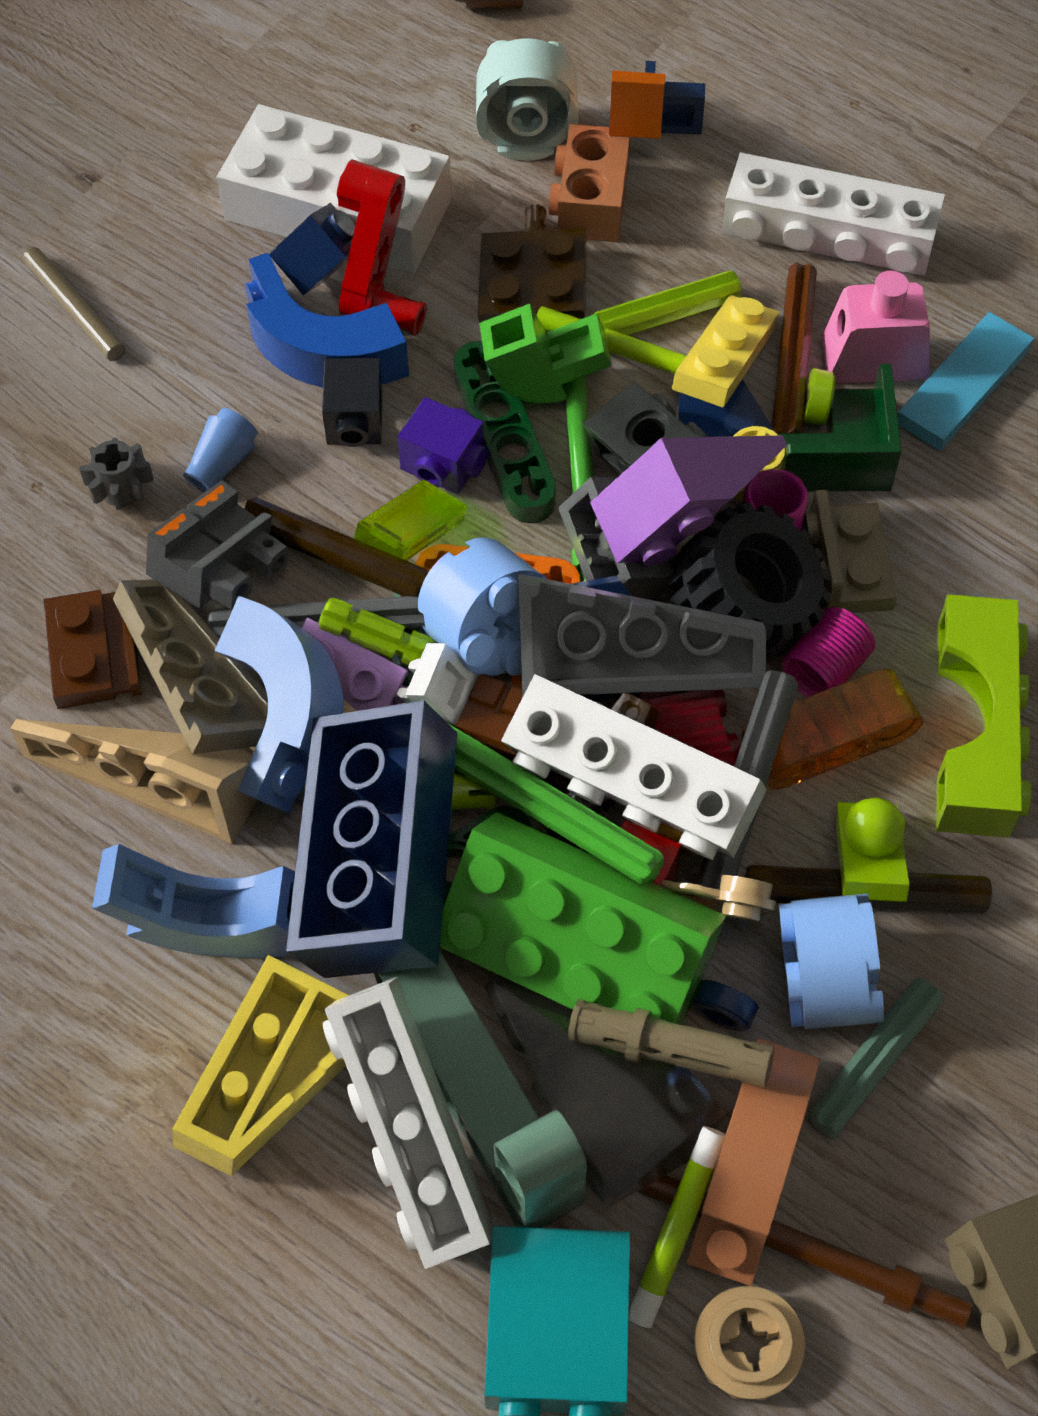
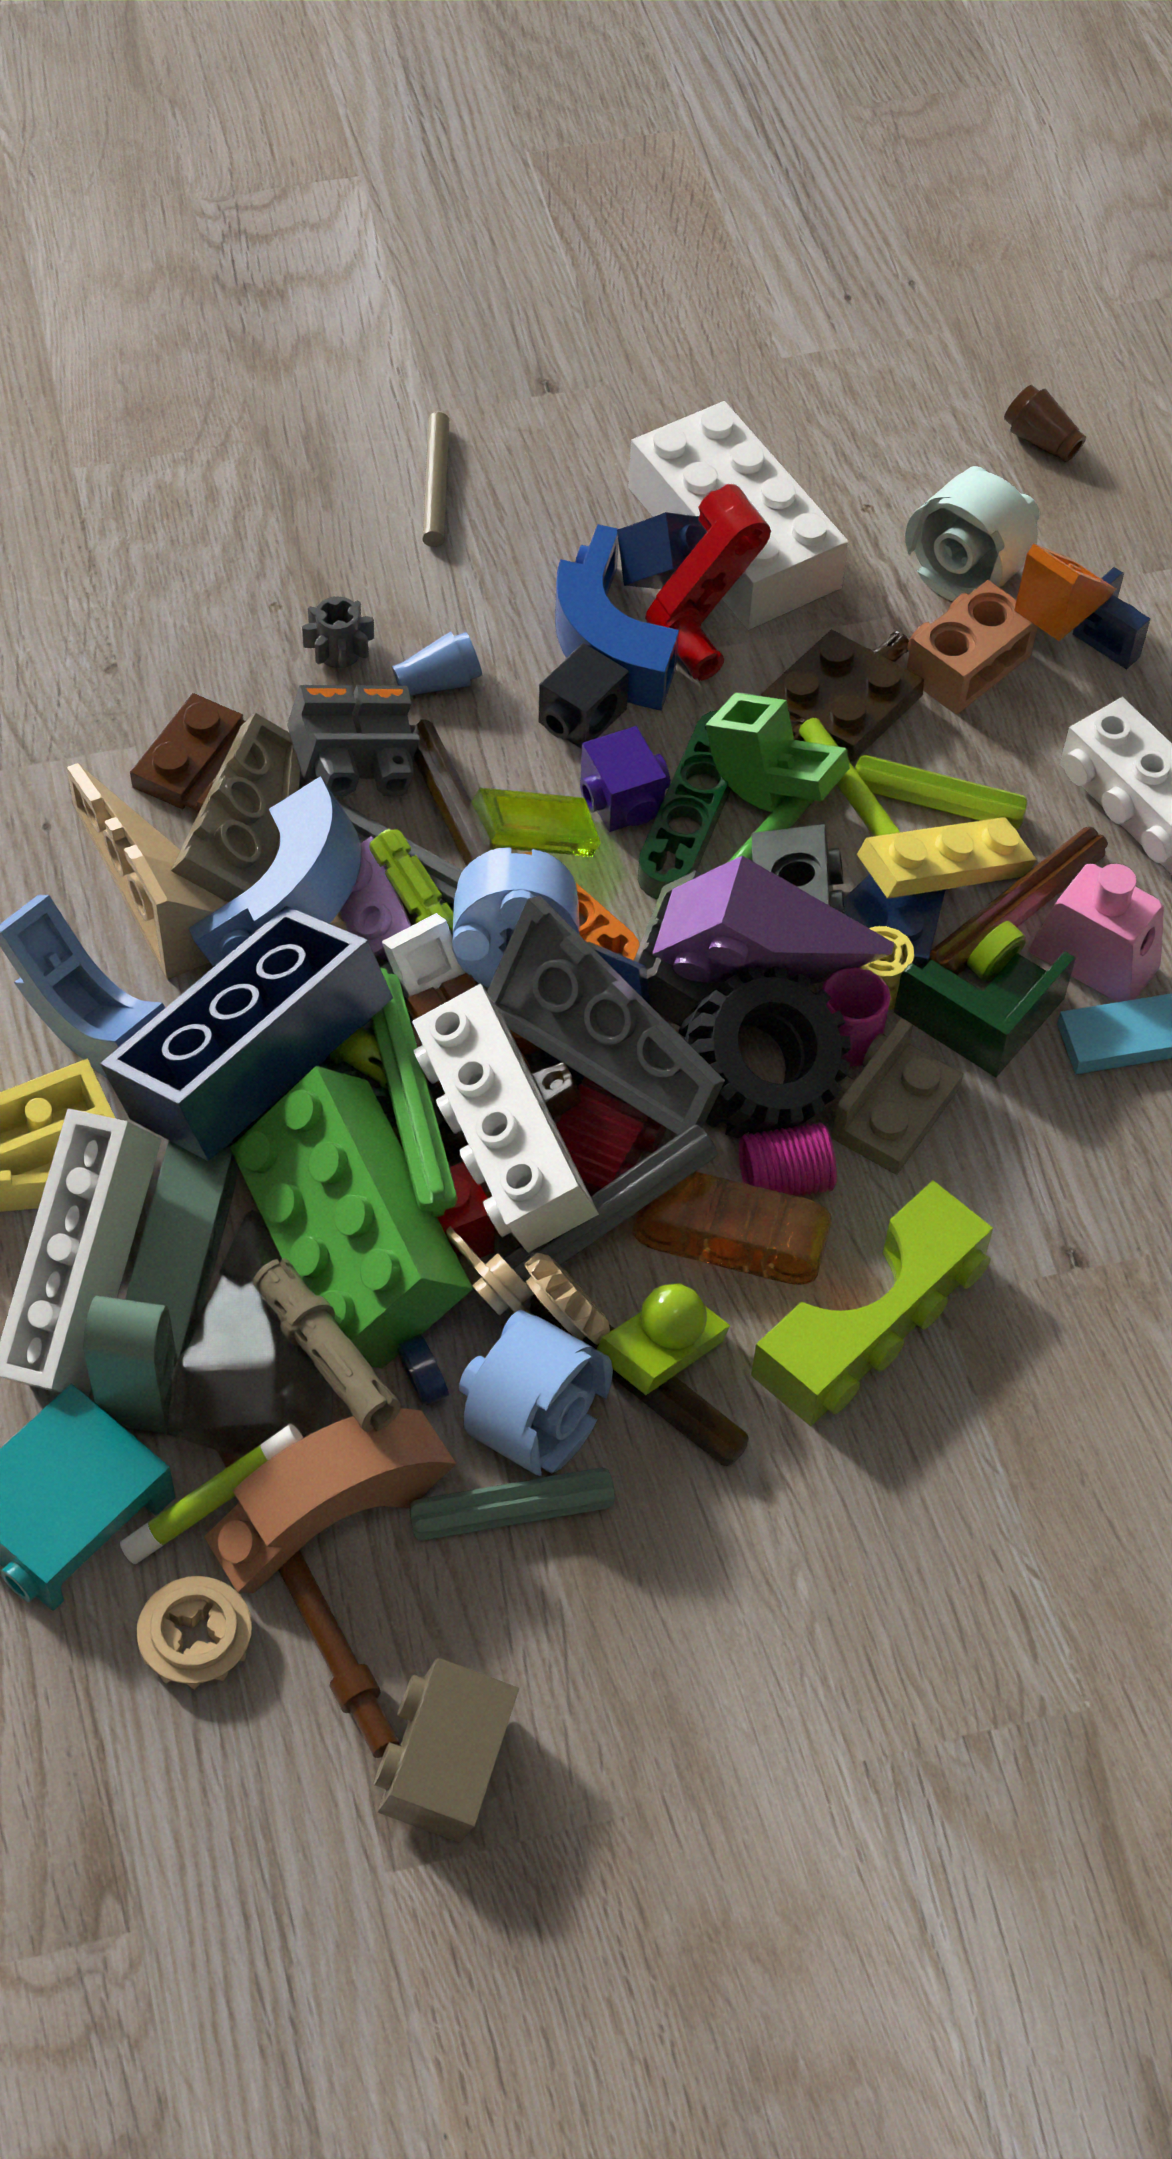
camera: 35 degrees right, 5 degrees down
(796, 872) = (565, 1299): none -> tan gear

